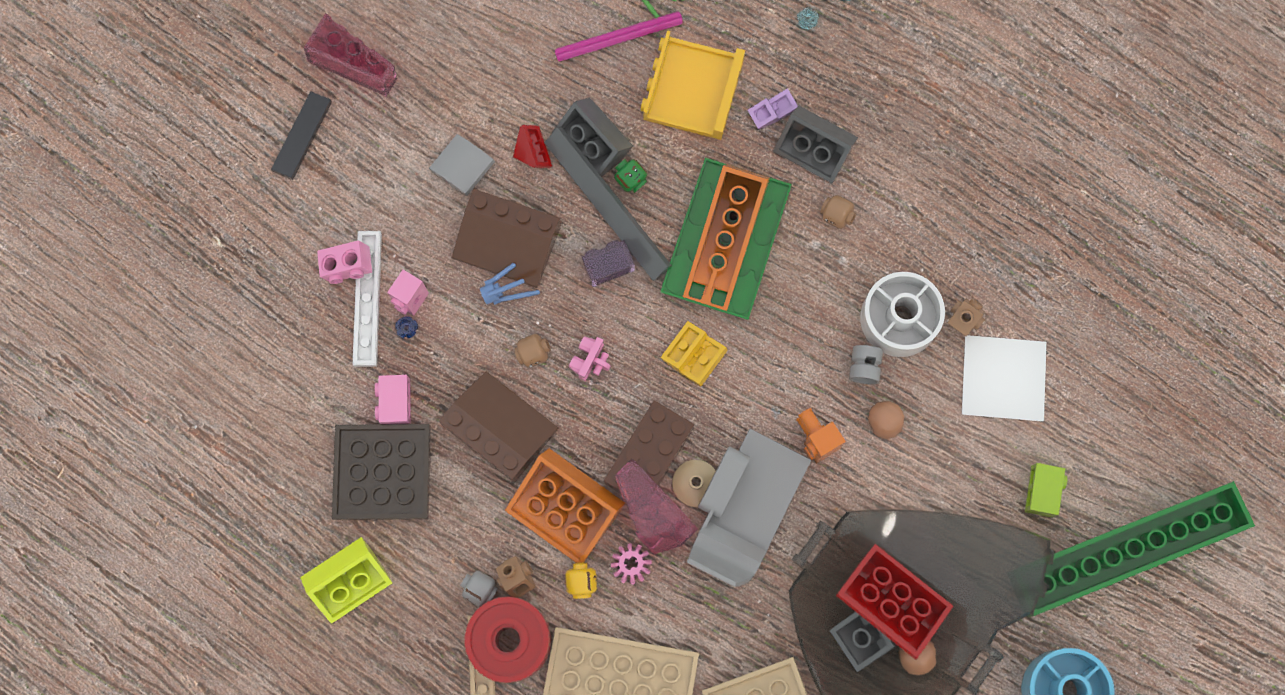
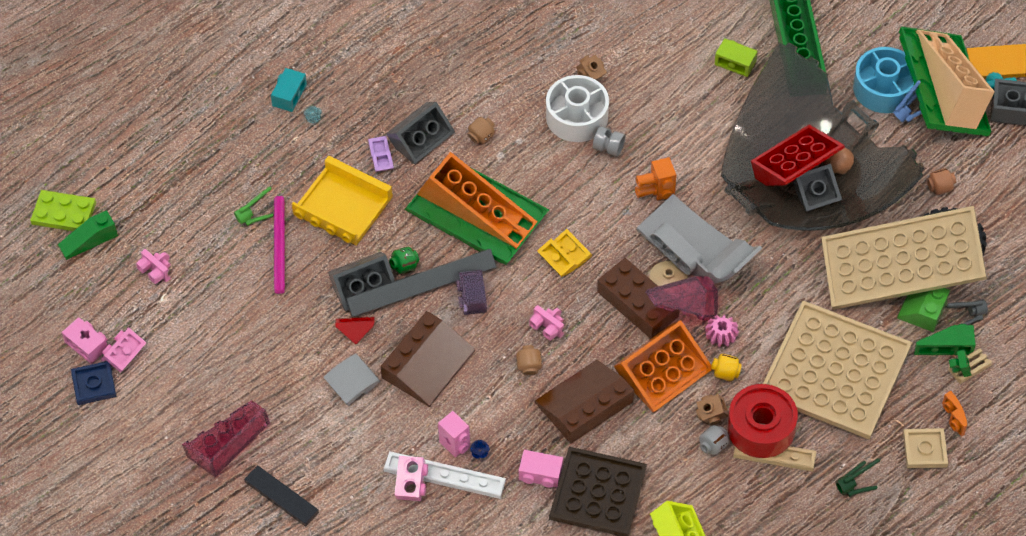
camera: 75 degrees left, 20 degrees down
(493, 292) = (471, 377): medium blue plant -> none
(886, 419) = (654, 141): nougat hair -> none
(1004, 378) = (643, 63): white sticker -> none

